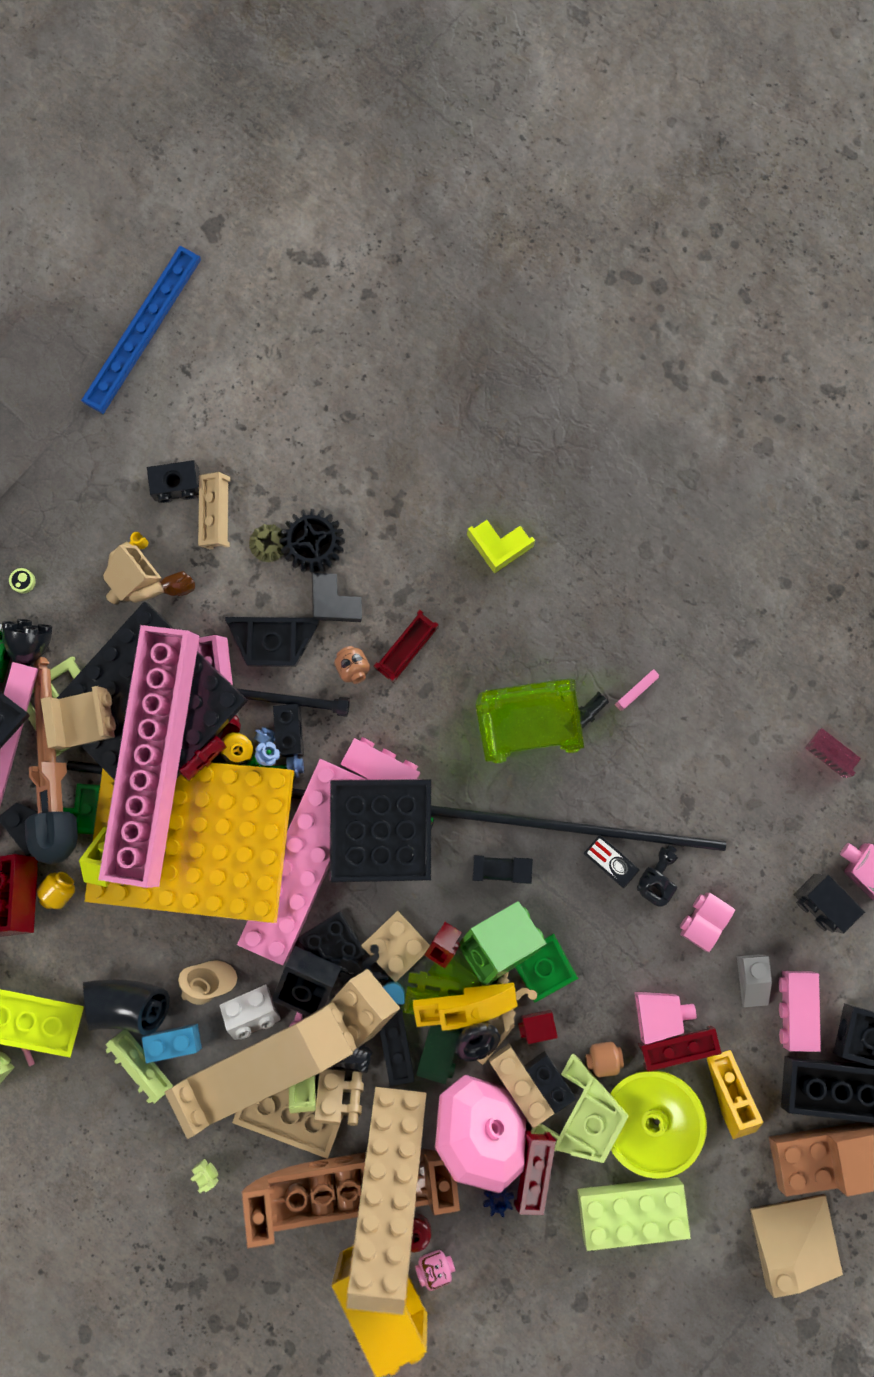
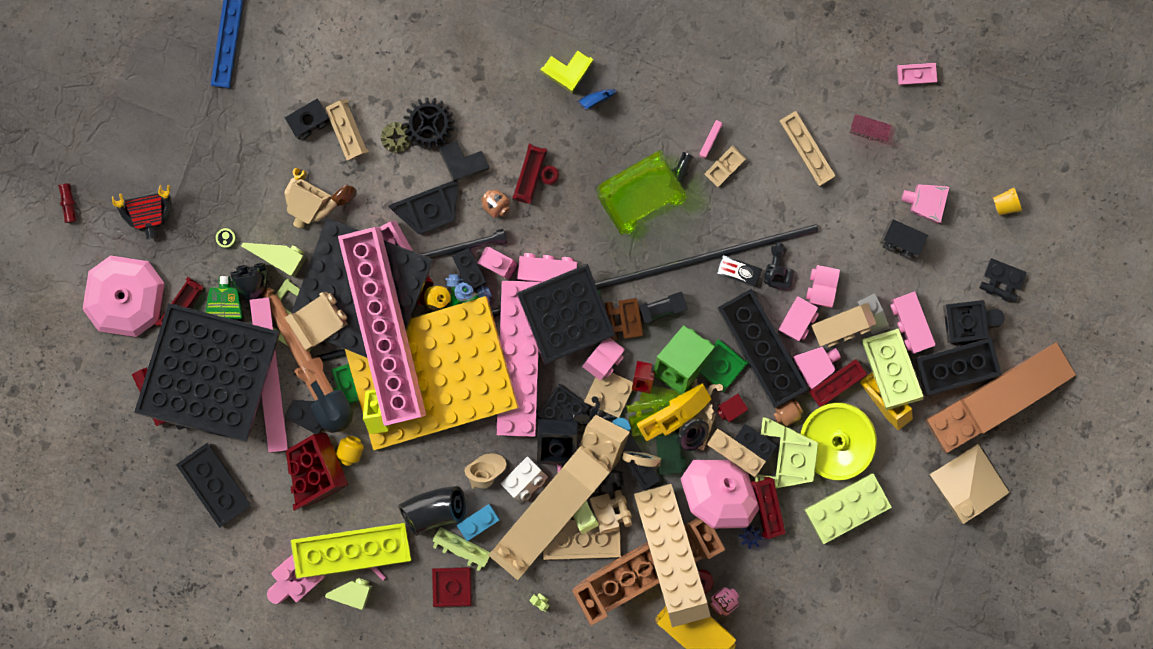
camera: 20 degrees left, 5 degrees up
(77, 633) = (285, 258): none -> yellowish green slope
(108, 1109) = (451, 586): none -> dark red tile
(202, 758) = (418, 313): dark red pin -> none
(325, 737) = (497, 263): none -> bright pink torso
(402, 1048) = (641, 458): none -> tan tile
(404, 903) = (603, 358): none -> bright pink brick
(432, 650) = (545, 170): none -> dark red plate
(457, 863) = (629, 316): none -> reddish brown plate
(514, 588) = (594, 98): none -> blue brick
(604, 970) = (762, 348): none -> black brick
(642, 729) = (725, 166): none -> tan slope
(661, 949) = (798, 319): none -> bright pink brick
(716, 981) = (844, 325): none -> tan brick
(748, 747) = (807, 148): none -> tan plate
(755, 1061) = (892, 369): none -> yellowish green plate

